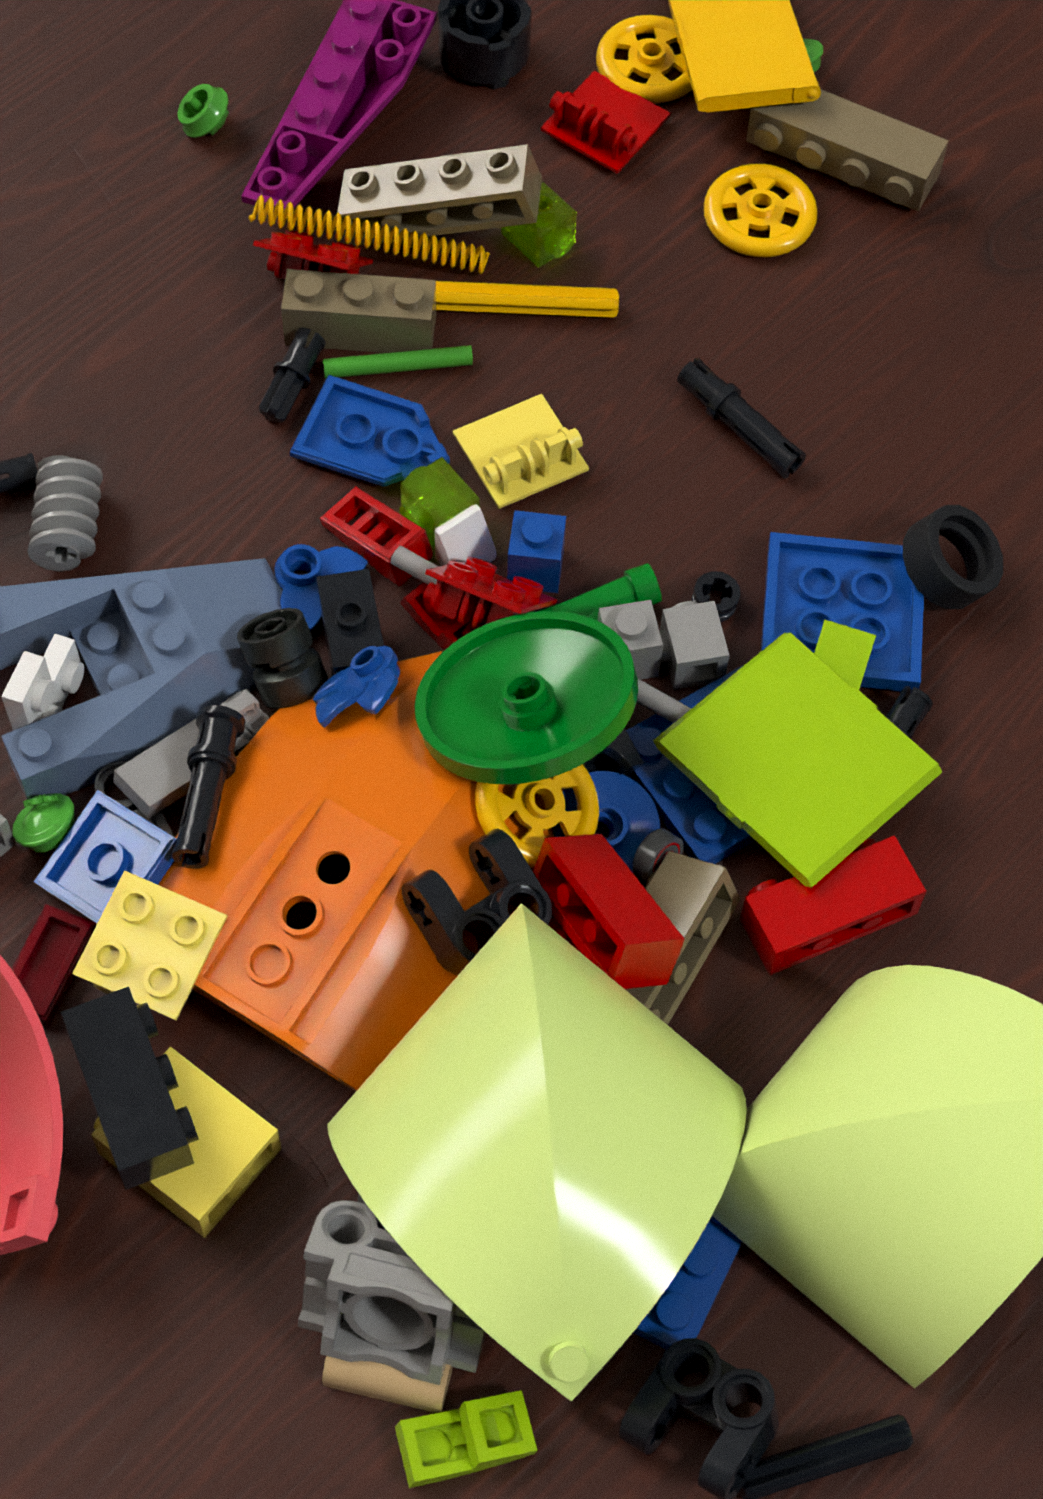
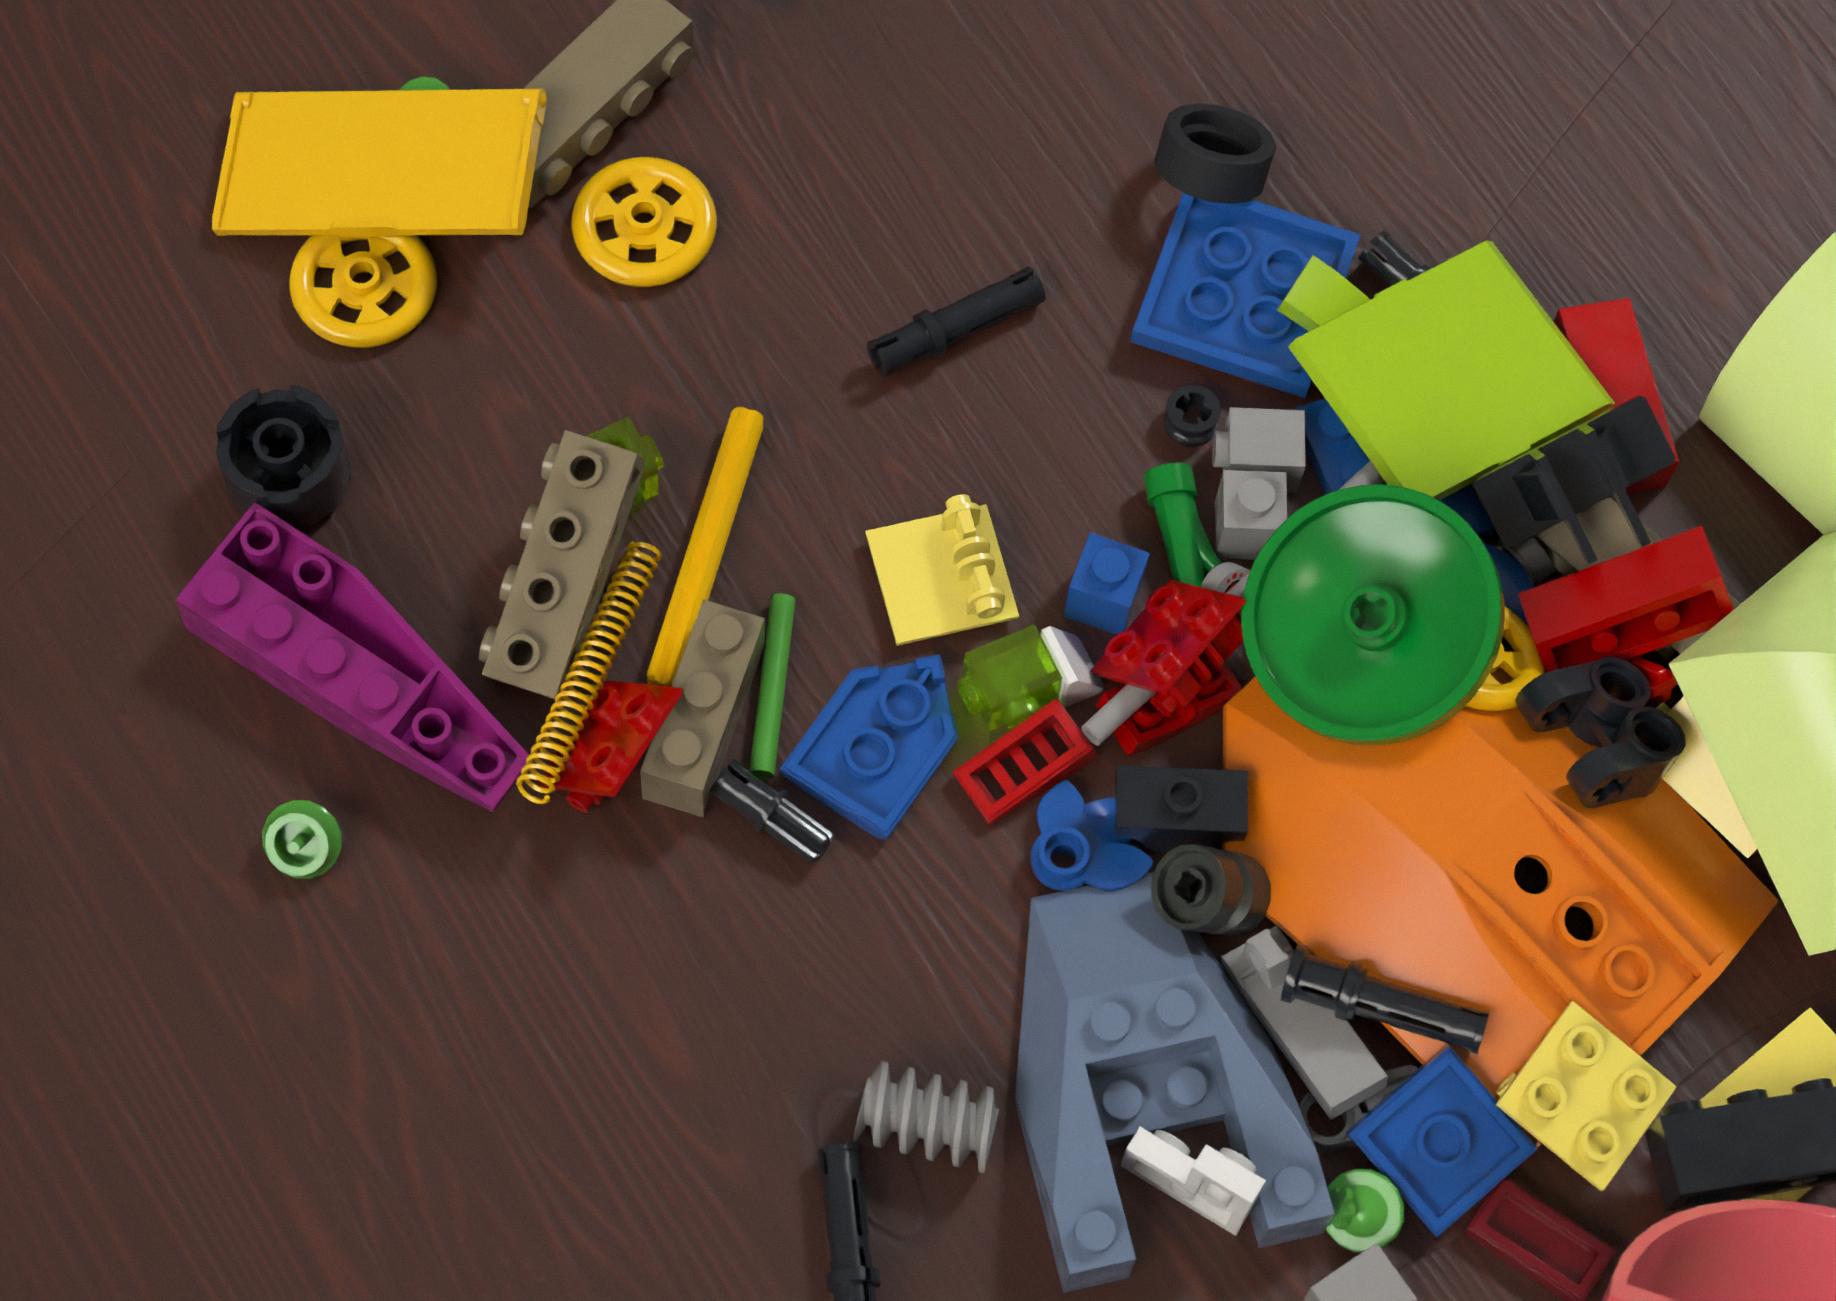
camera: 80 degrees left, 5 degrees up
(367, 681) = (1300, 809): blue plate -> none
(603, 121) = (456, 358): red hinge -> none
(718, 854) = (1575, 473): none -> black piece

